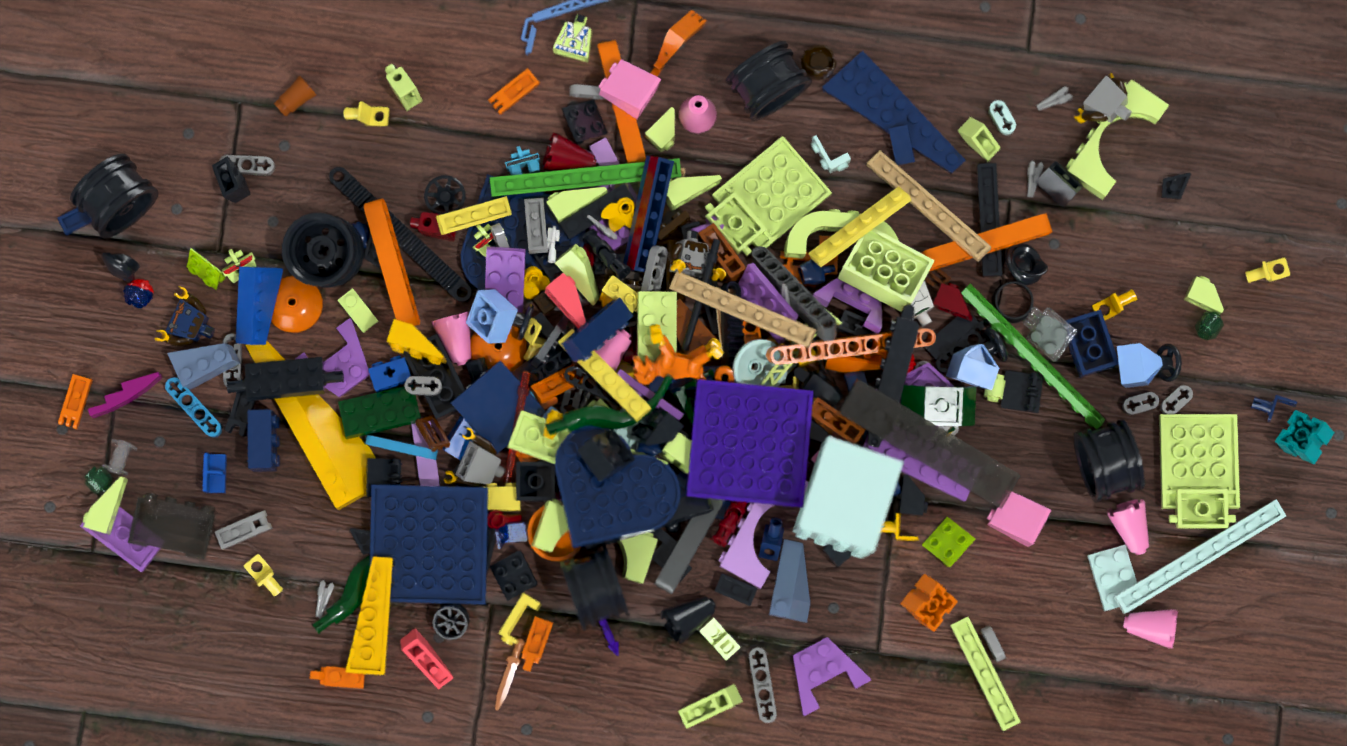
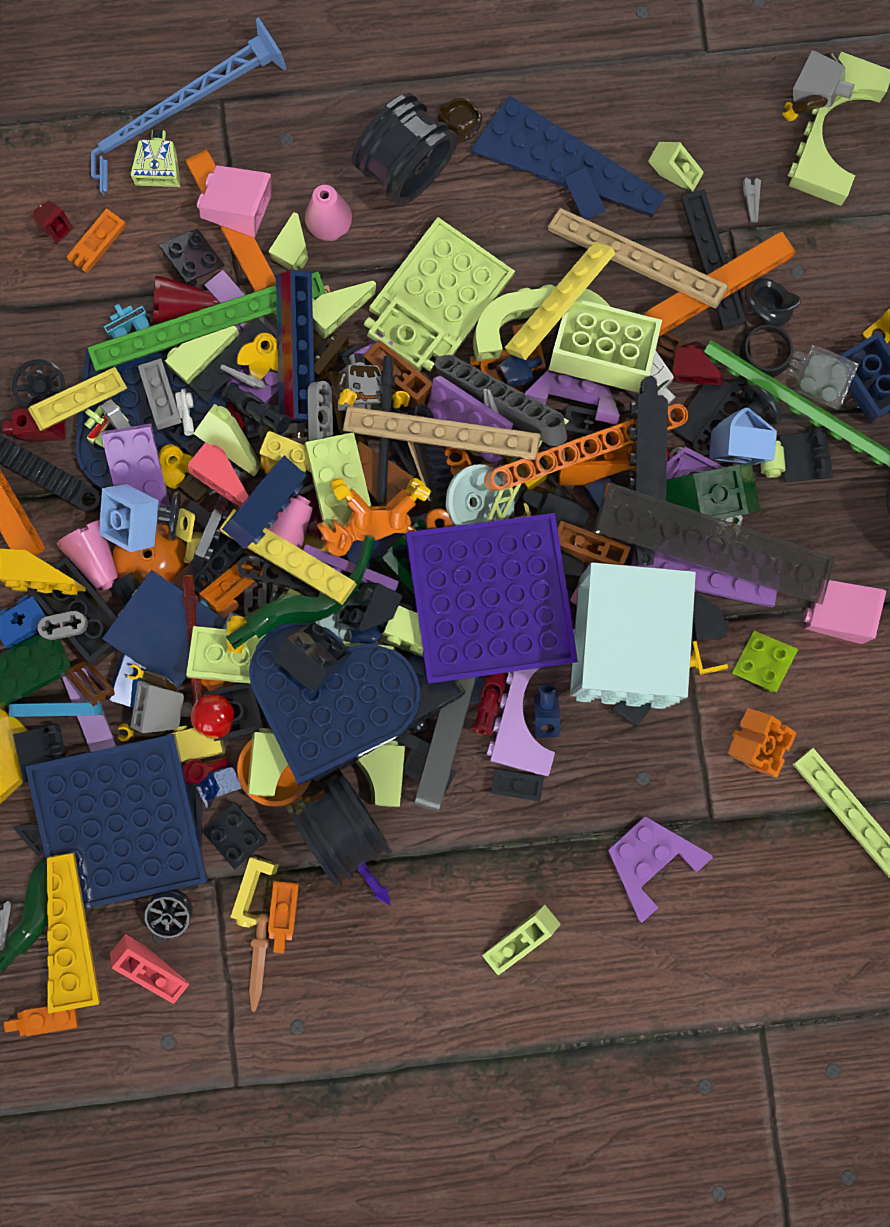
camera: 15 degrees left, 0 degrees up
(483, 68) = (52, 221): none -> dark red slope
(519, 481) = (212, 716): none -> red hair
(585, 91) = (184, 221): light grey beam -> none
(676, 37) = (277, 125): orange hinge -> none
(687, 617) = (466, 835): black cone -> none
(719, 638) = (511, 851): yellowish green slope -> none
(759, 685) = (580, 896): light grey beam -> none
(791, 589) = (584, 764): sand blue wedge -> none
(839, 163) = (506, 239): light aqua bracket -> none
(993, 643) = (852, 774): light grey beam -> none
(998, 120) = (696, 135): light aqua beam -> none
(1057, 98) = (756, 98): light grey piece -> none
(1059, 184) = (786, 196): black brick -> none

